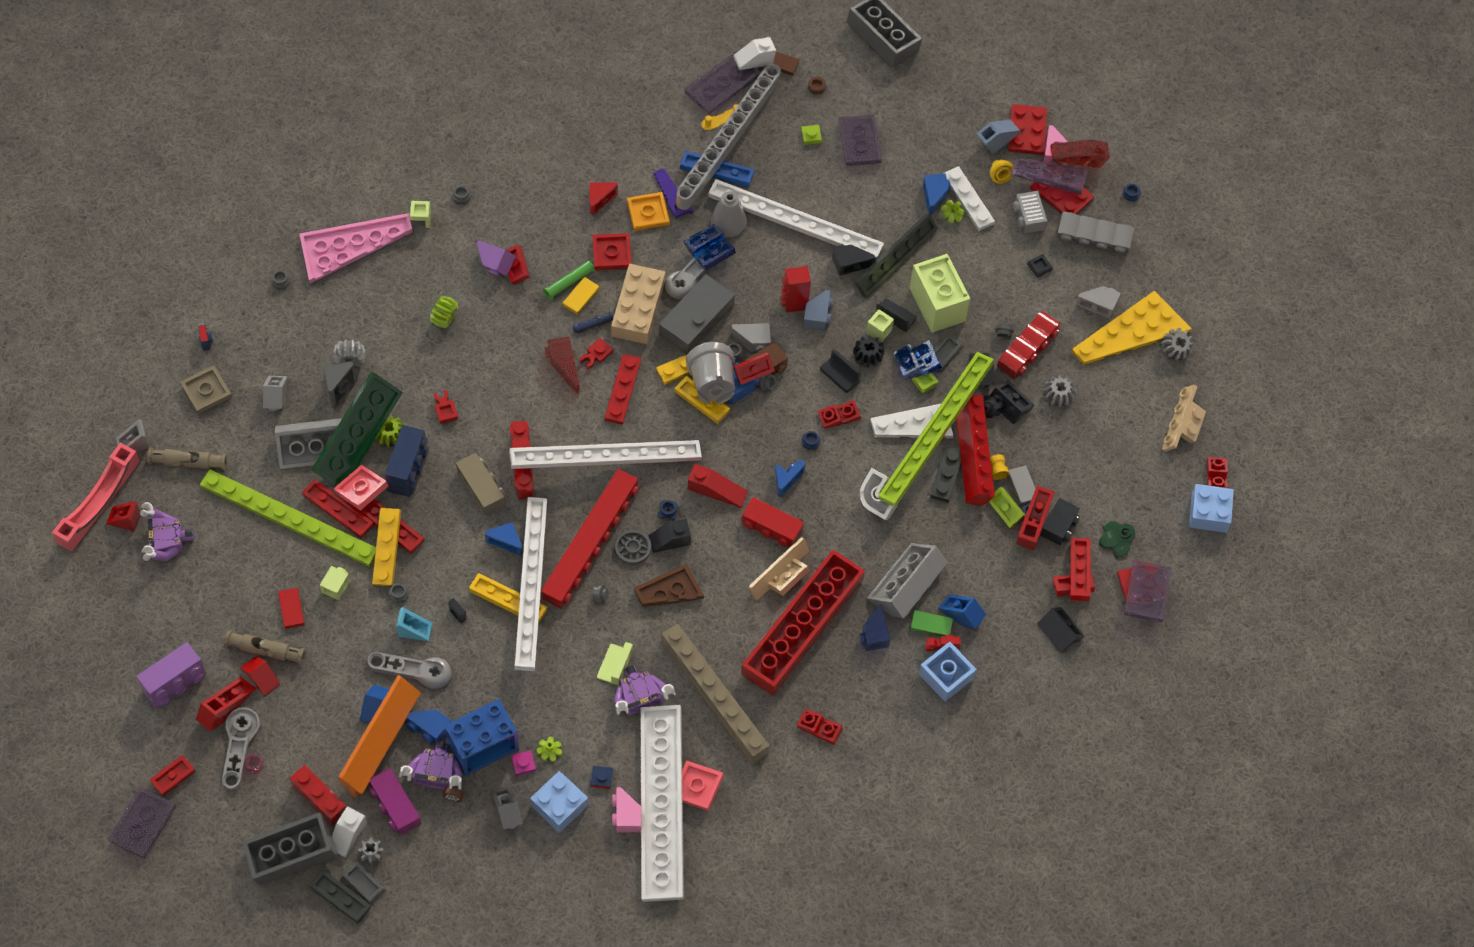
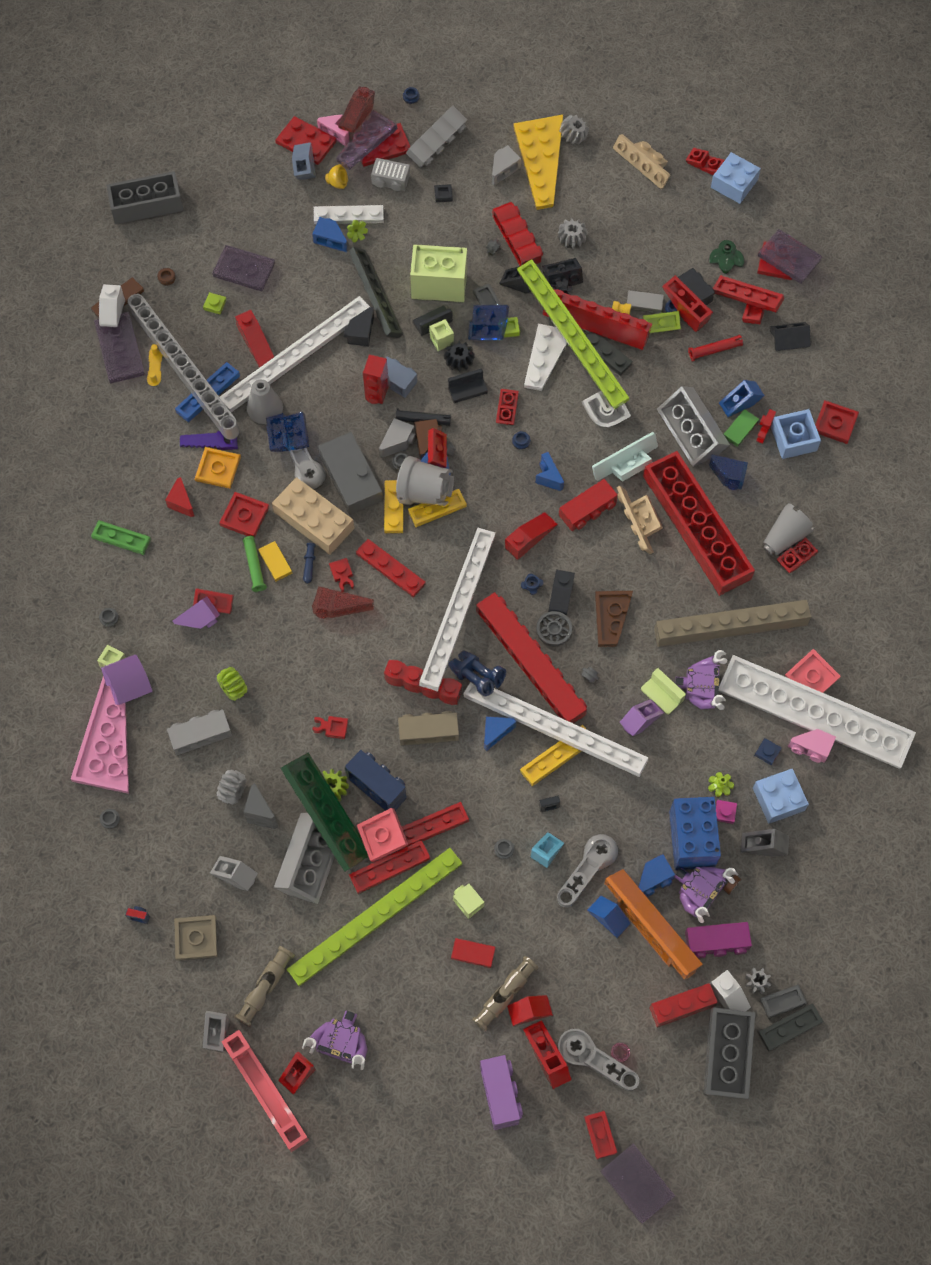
camera: 60 degrees left, 5 degrees up
(386, 547) = (455, 838): yellow plate -> none
(389, 308) = (199, 732): none -> light grey brick
(406, 231) = (126, 679): none -> medium lavender slope
(541, 169) = (121, 537): none -> bright green tile
(559, 491) = (469, 663): none -> dark blue piece
(580, 653) = (641, 717): none -> medium lavender slope
(787, 348) = (410, 416): none -> black pin
(792, 179) = (254, 337): none -> red slope
(837, 703) = (787, 530): none -> light grey cone
(839, 537) = (627, 460): none -> light aqua bracket
(987, 707) = (836, 422): none -> red tile
(1010, 569) = (715, 347): none -> red pin

